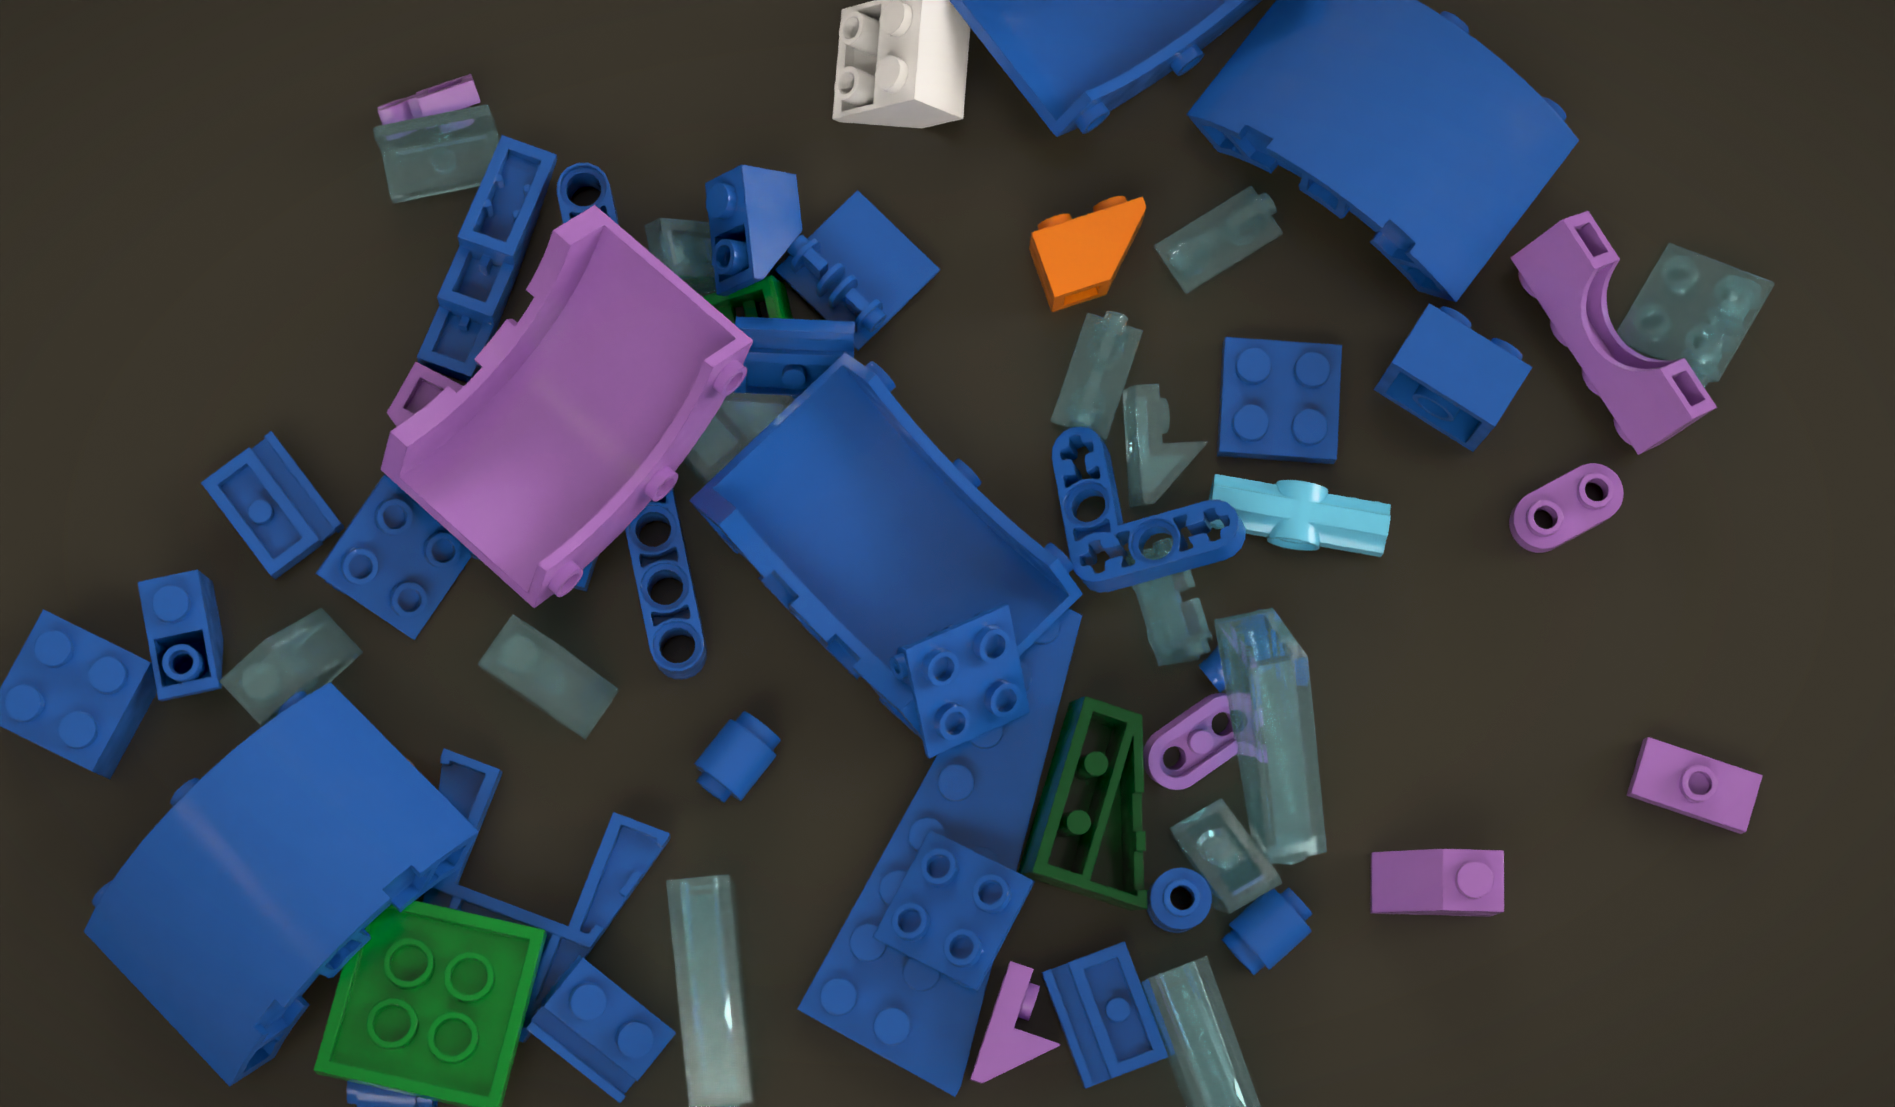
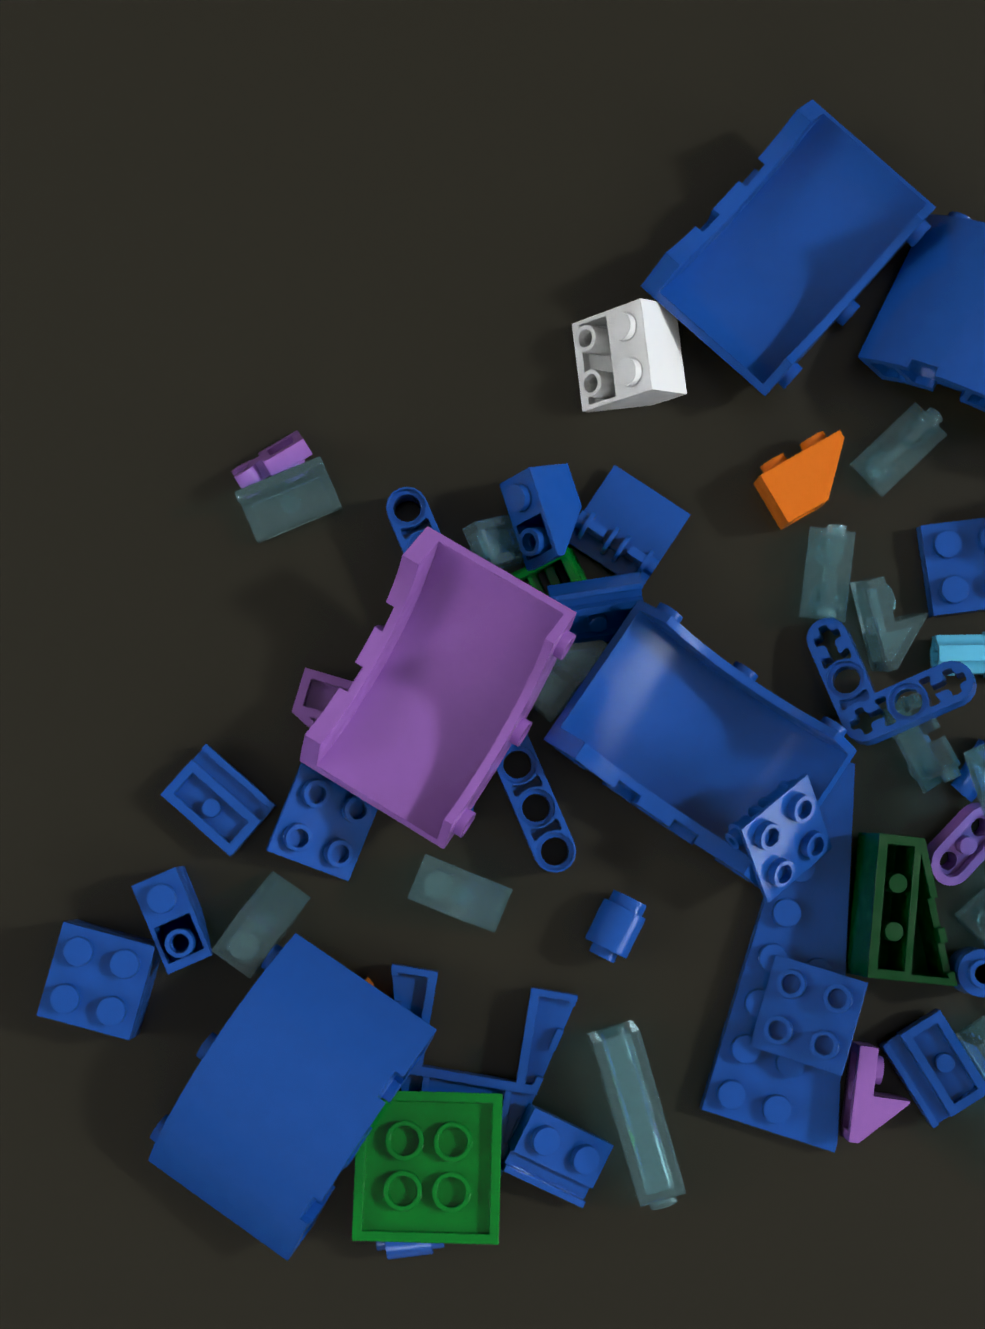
camera: 10 degrees left, 5 degrees up
(487, 258) = (342, 575): blue slope -> none

